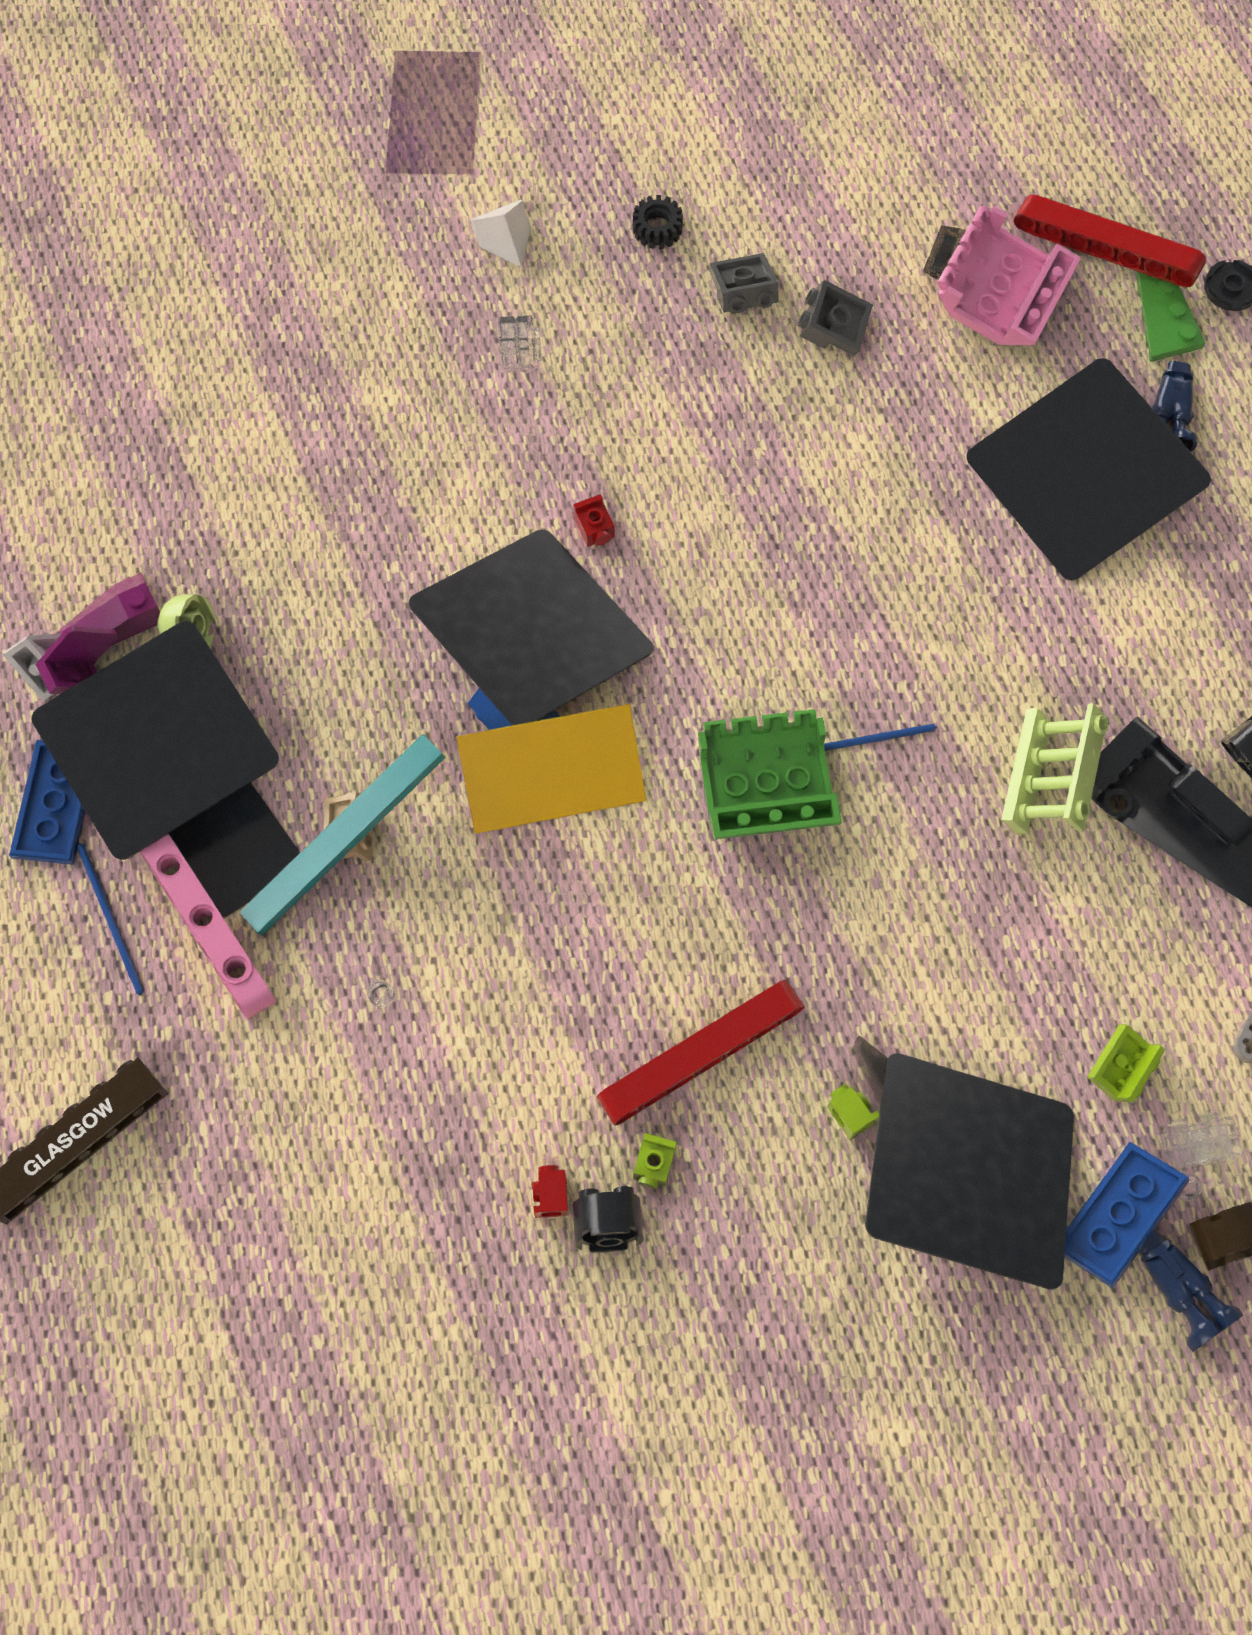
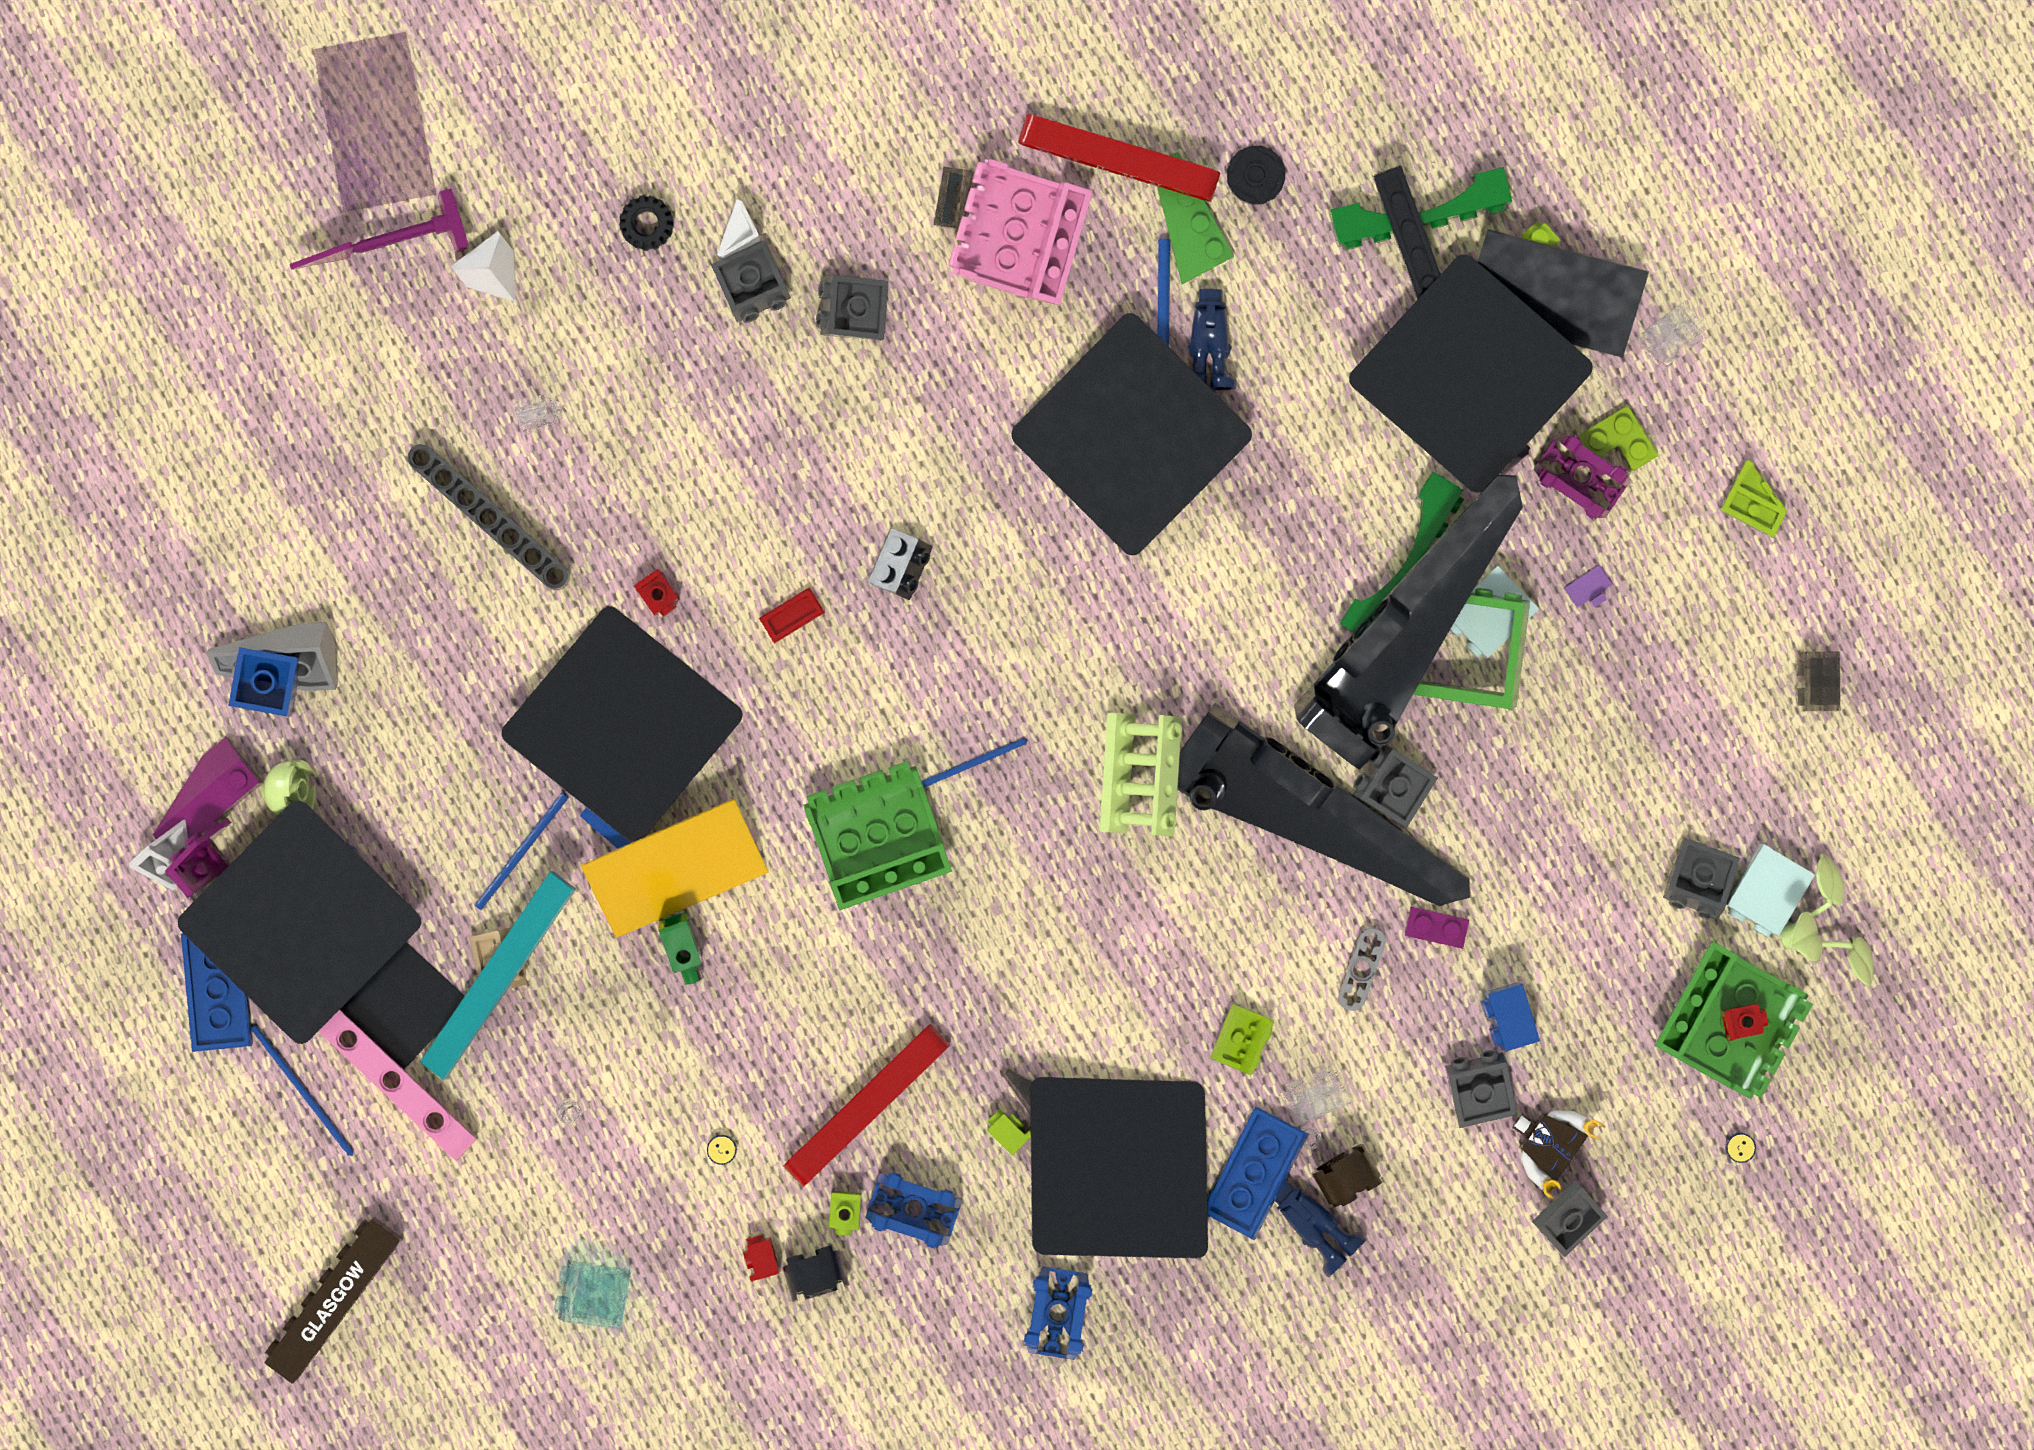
camera: 15 degrees left, 20 degrees up
(191, 523) = (264, 682): none -> blue slope
(226, 511) = (305, 641): none -> light grey wedge
(355, 1193) = (592, 1294): none -> clear light blue plate
(368, 183) = (448, 221): none -> magenta piece
(401, 731) = (518, 855): none -> blue axle
(452, 439) = (480, 505): none -> dark grey beam
(534, 1068) = (721, 1149): none -> light yellow tile
(540, 835) = (678, 935): none -> green torso
(721, 569) = (791, 615): none -> red tile
(743, 239) = (739, 232): none -> white slope
(743, 1157) = (906, 1224): none -> blue piece
(839, 541) = (900, 564): none -> bracket
(893, 1327) = (1072, 1322): none -> blue piece
(1134, 350) = (1163, 289): none -> blue bar

